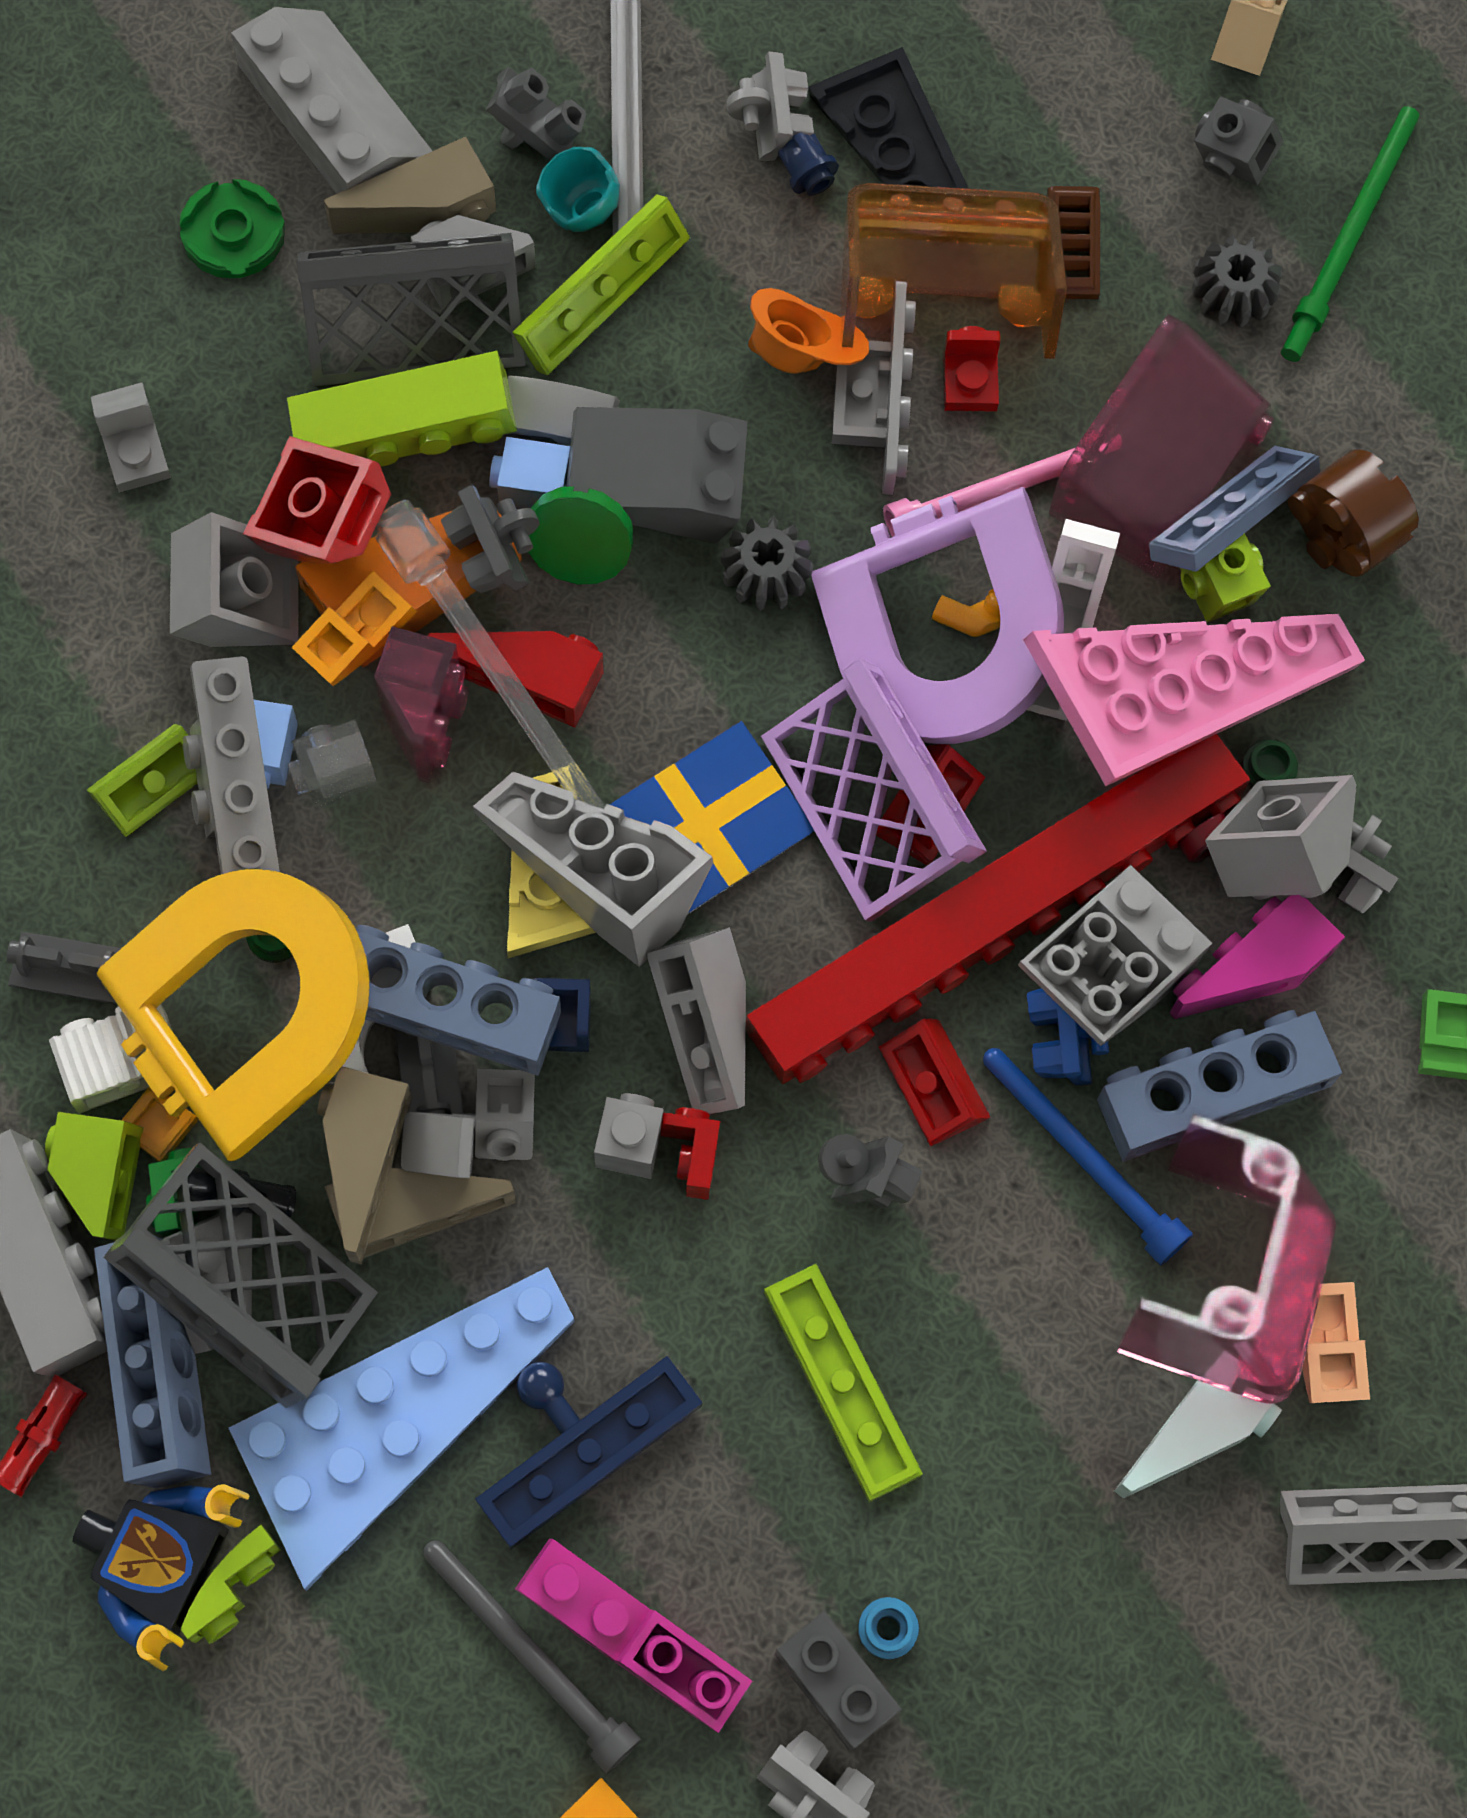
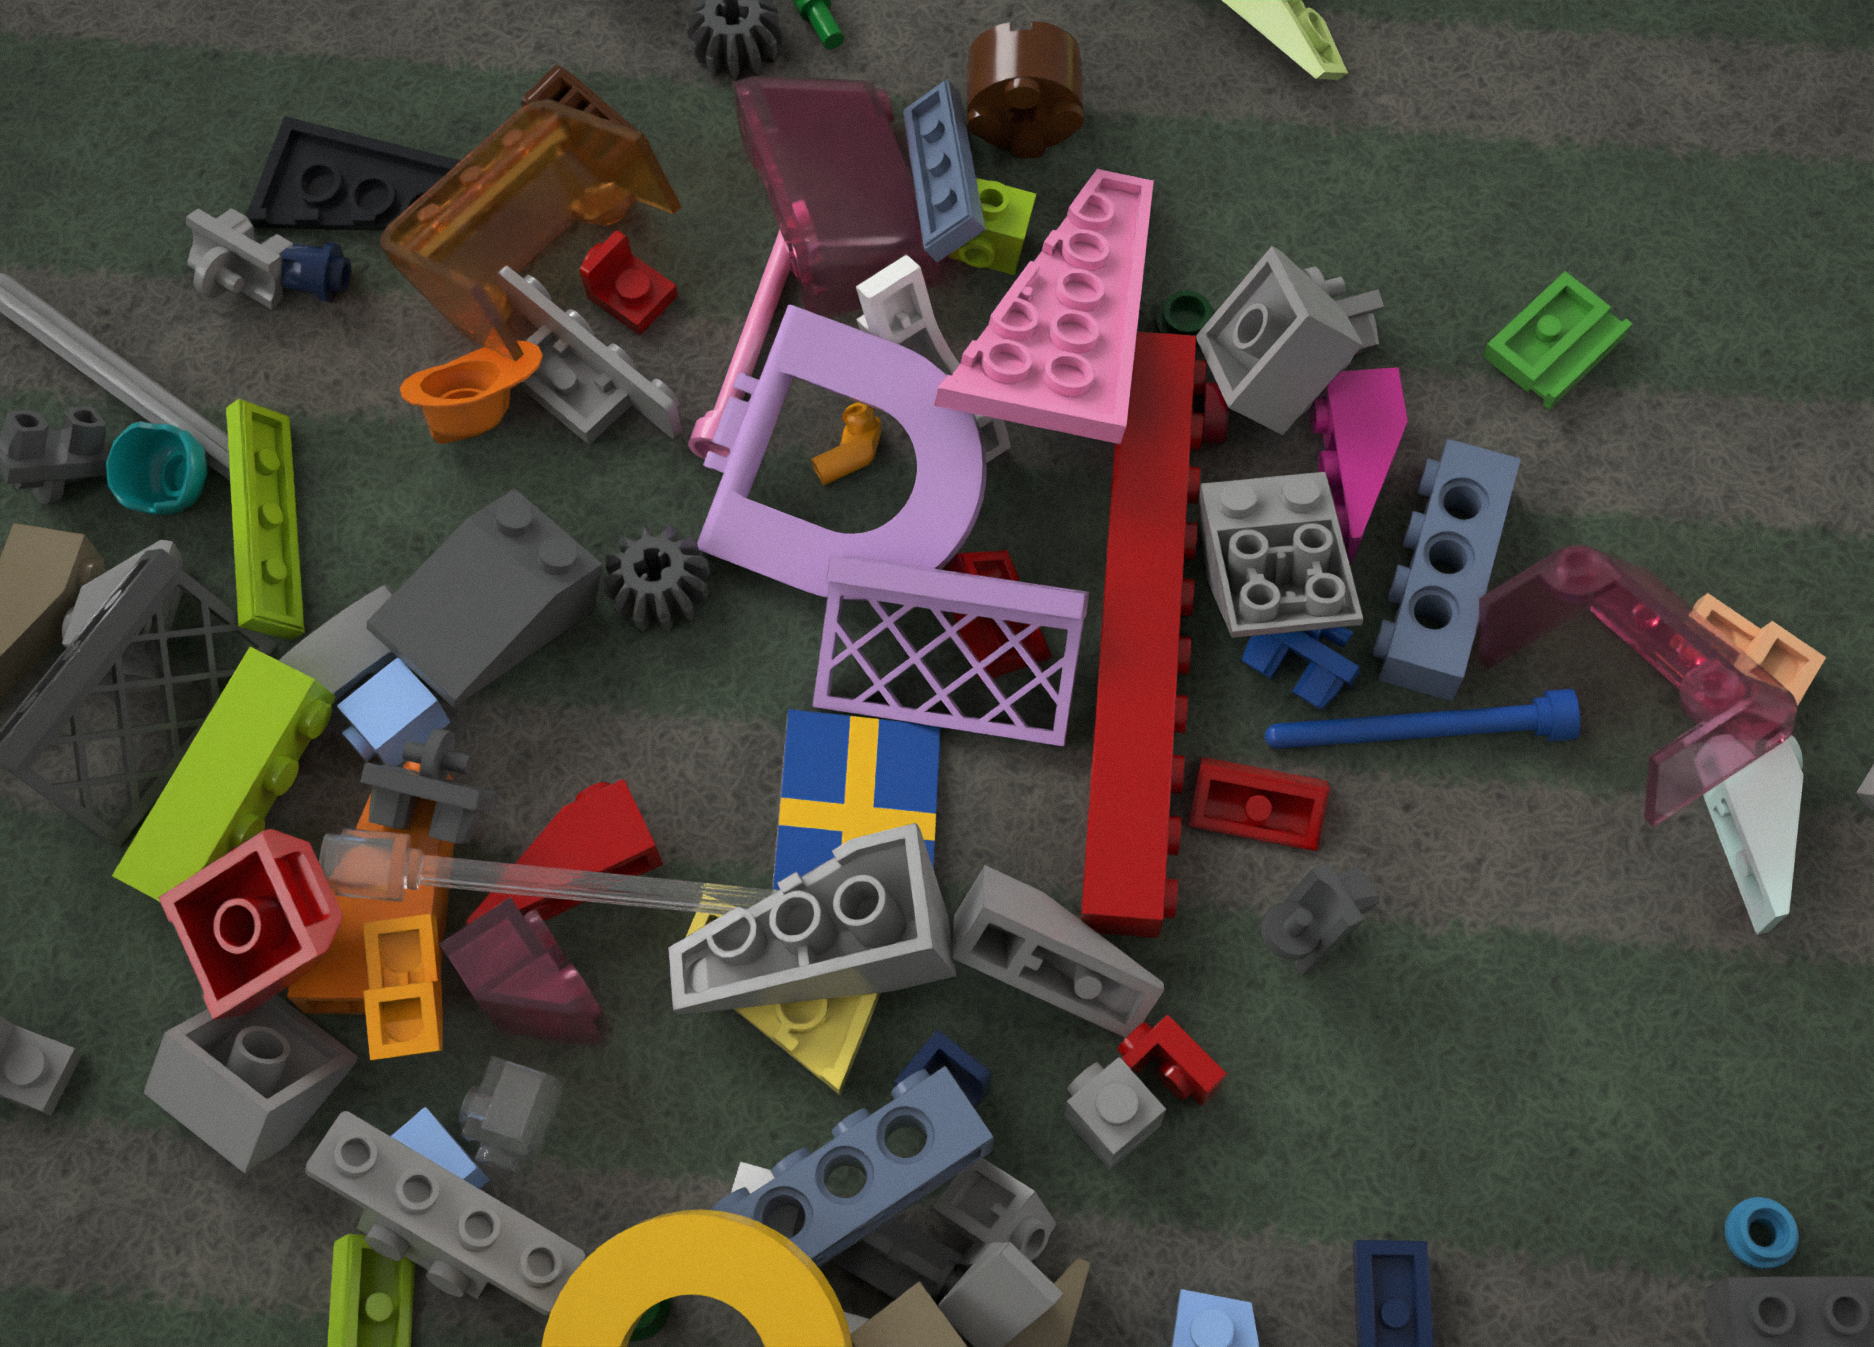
camera: 45 degrees left, 5 degrees down
(581, 536) = (495, 711): green tile -> none
(842, 1383) = (1491, 1097): lime tile -> none

